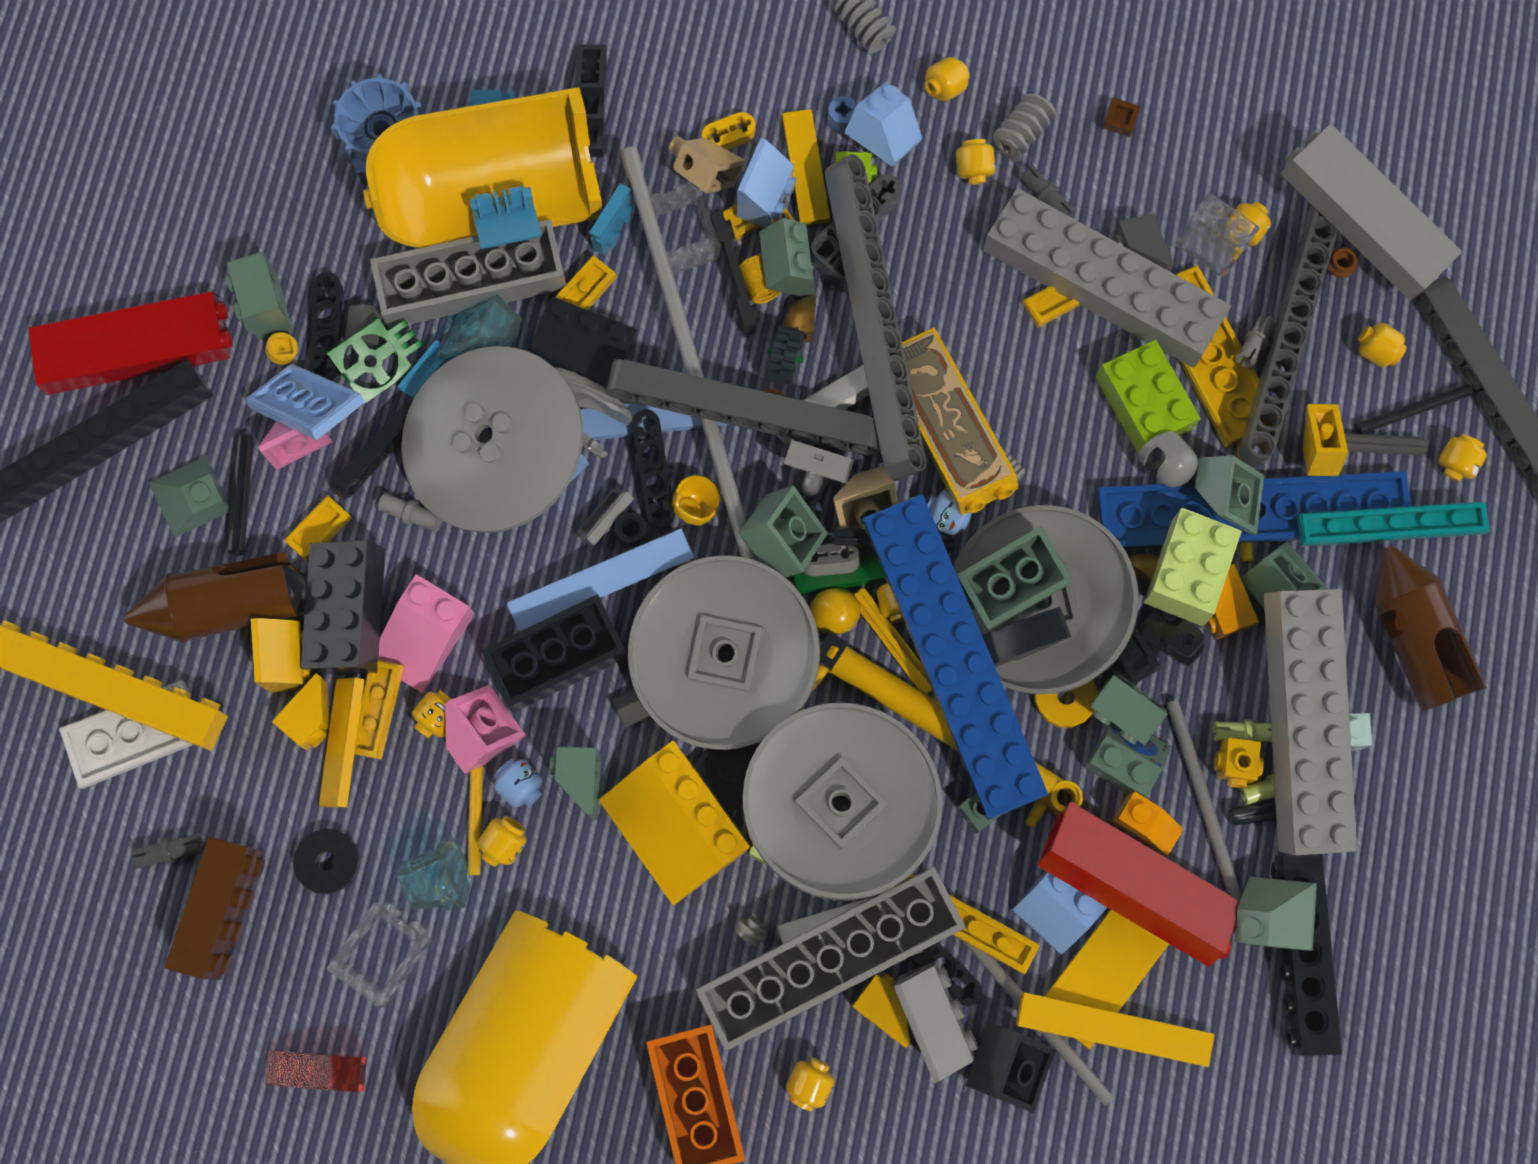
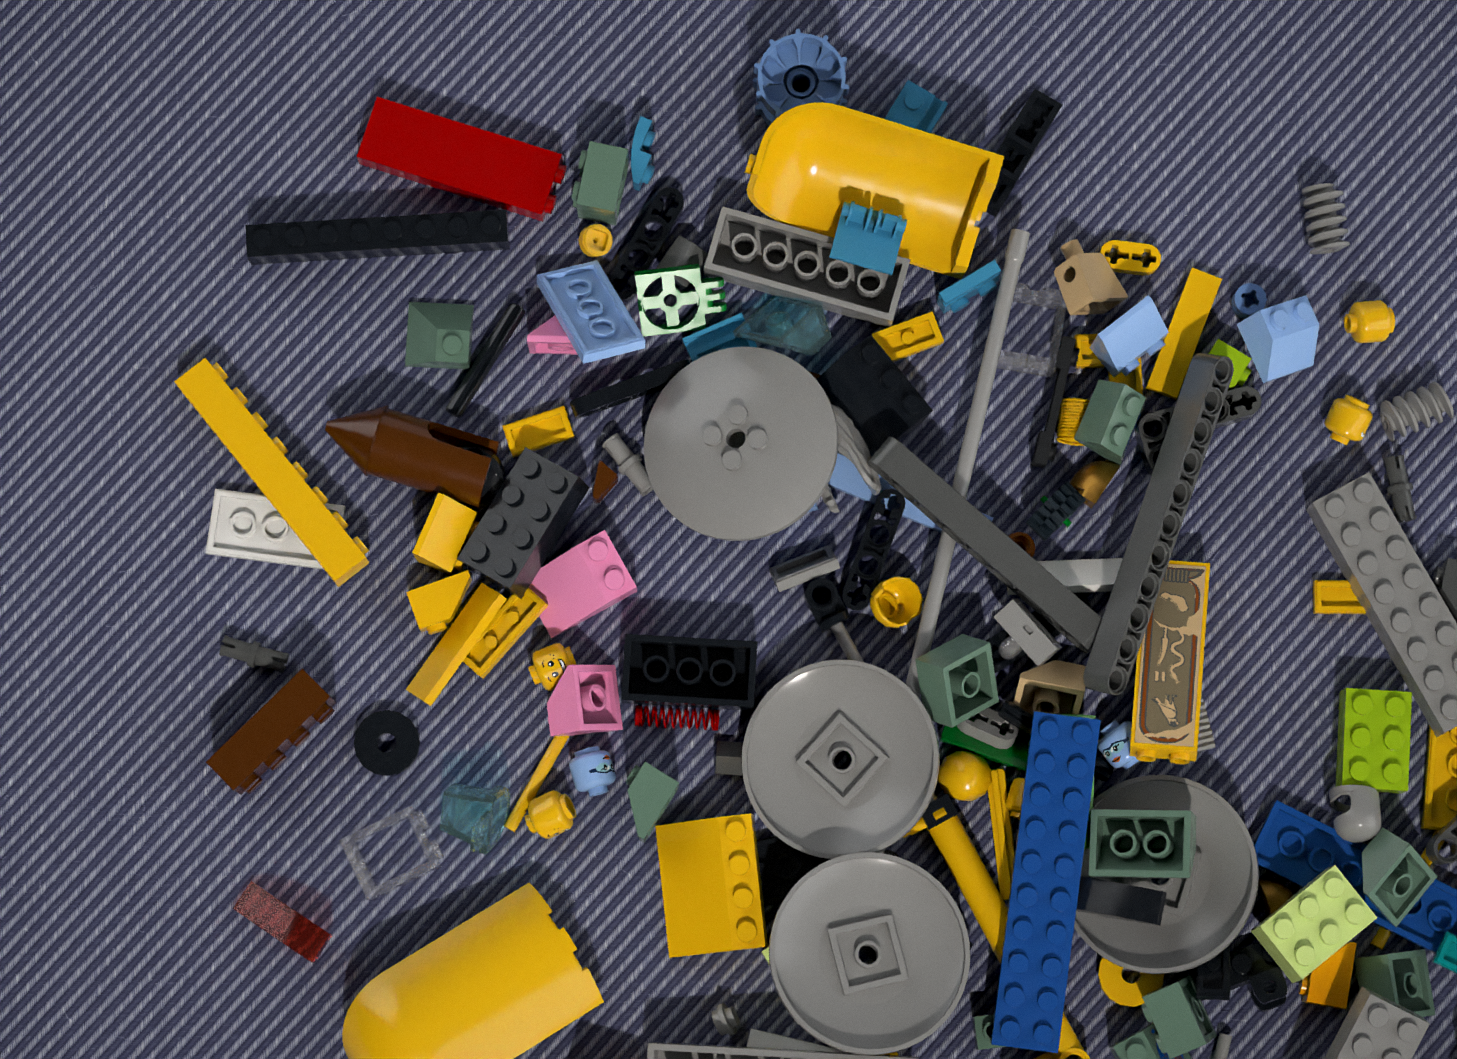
camera: 30 degrees right, 5 degrees up
(281, 259) = (641, 161): none -> dark azure slope
(396, 538) = (604, 482): none -> reddish brown slope
(599, 682) = (714, 718): none -> red piece
(601, 578) = (768, 627): light blue tile -> none

